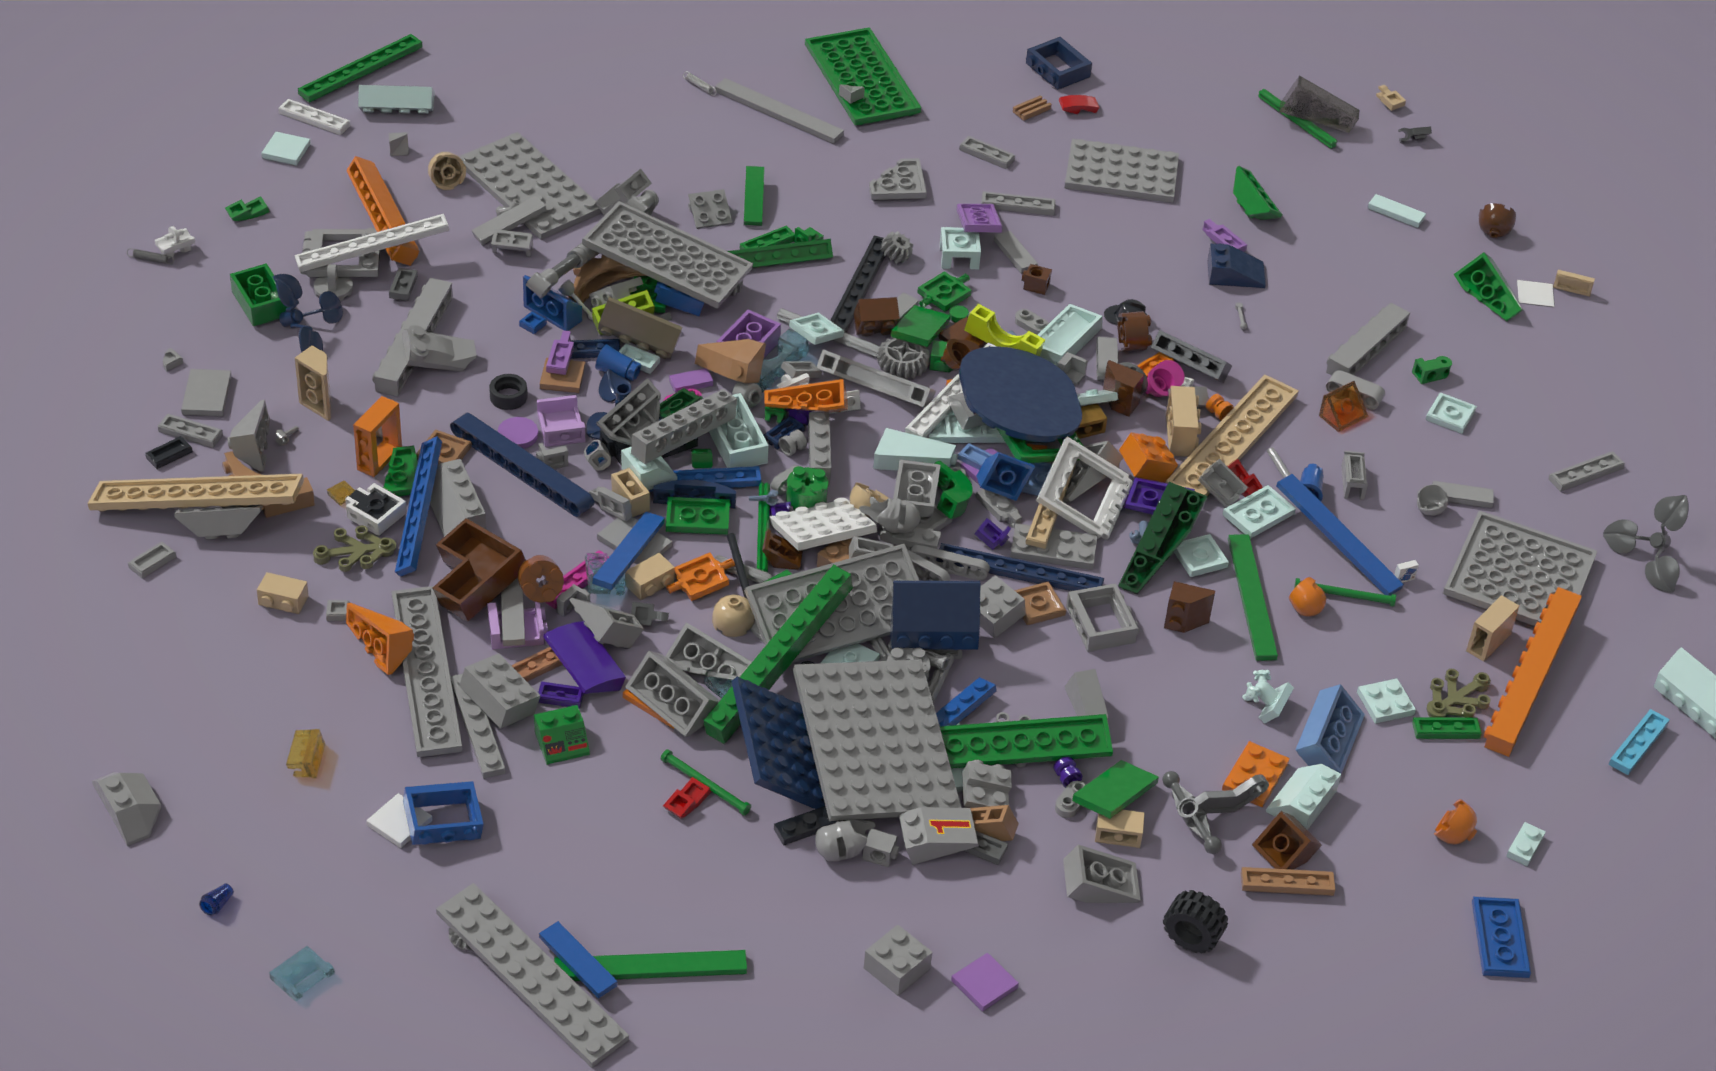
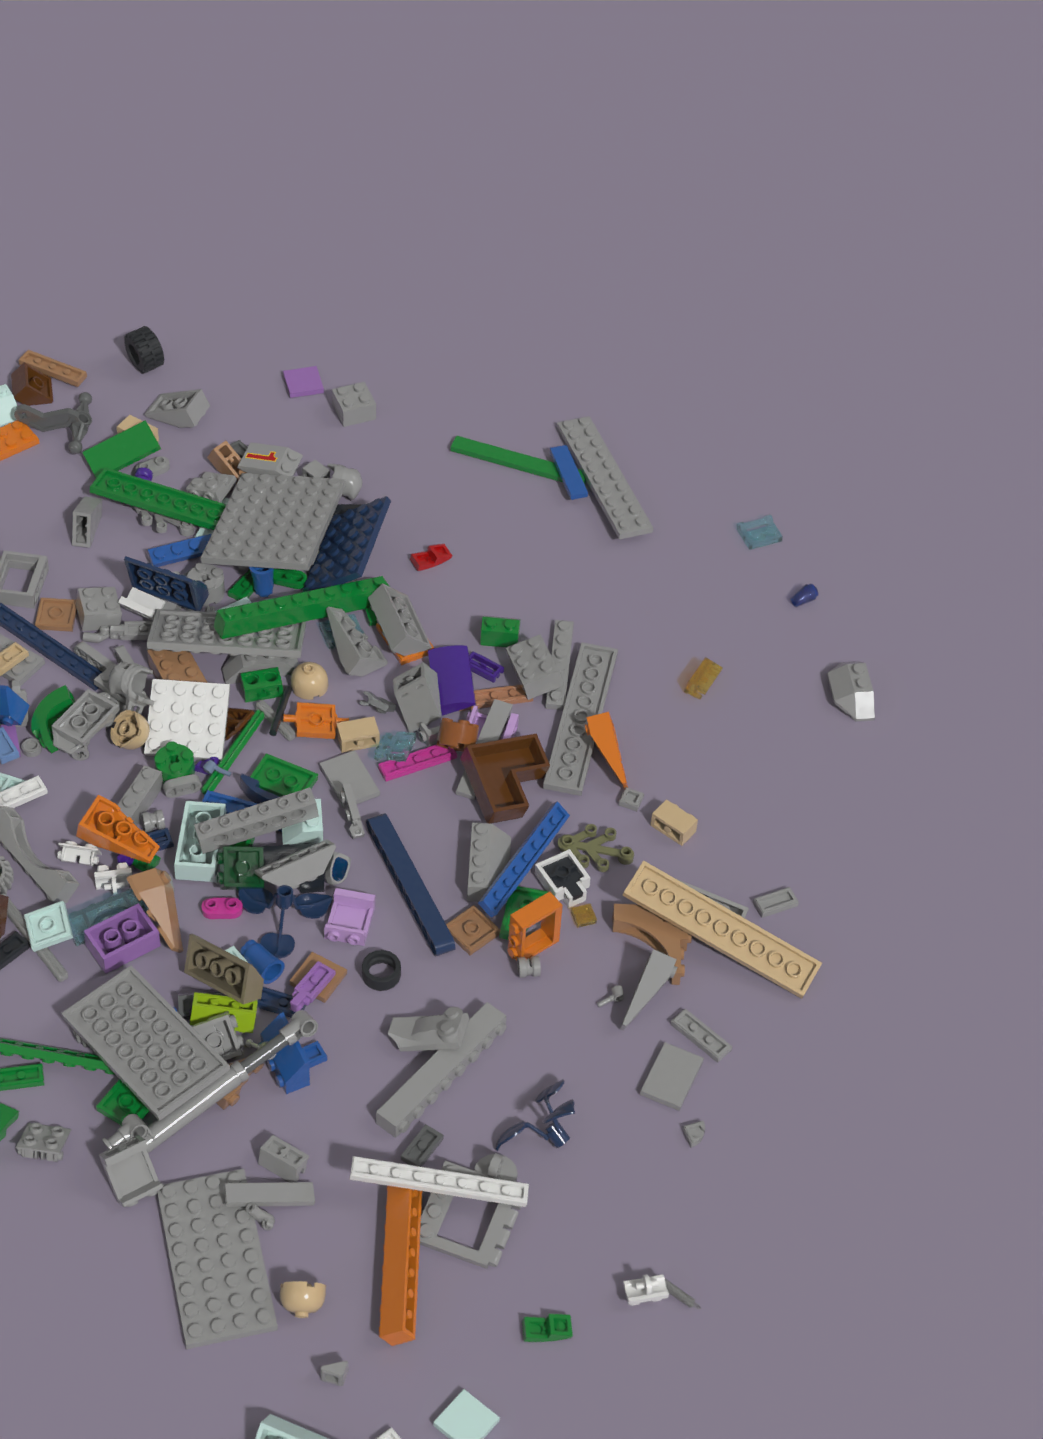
camera: 155 degrees left, 5 degrees up
(168, 452) = (729, 1016): black tile -> none
(257, 294) = (580, 1172): green brick -> none
(314, 381) = (570, 1013): tan slope -> none
(392, 823) = (650, 611): white tile -> none
(443, 795) = (618, 606): blue window -> none
(520, 431) = (394, 924): medium lavender tile -> none
(553, 457) = (378, 878): light grey bracket -> none
(628, 550) = (365, 750): blue tile -> none
(629, 486) = (331, 811): tan brick -> none
(691, 380) = (201, 927): medium lavender tile -> none
(744, 808) = (427, 590): green bar -> none
(797, 368) = (92, 893): light grey tile -> none
(862, 546) = (180, 672): light grey slope -> none
(905, 446) = (60, 776): light aqua slope -> none
(992, 534) = (46, 675): dark purple bracket -> none

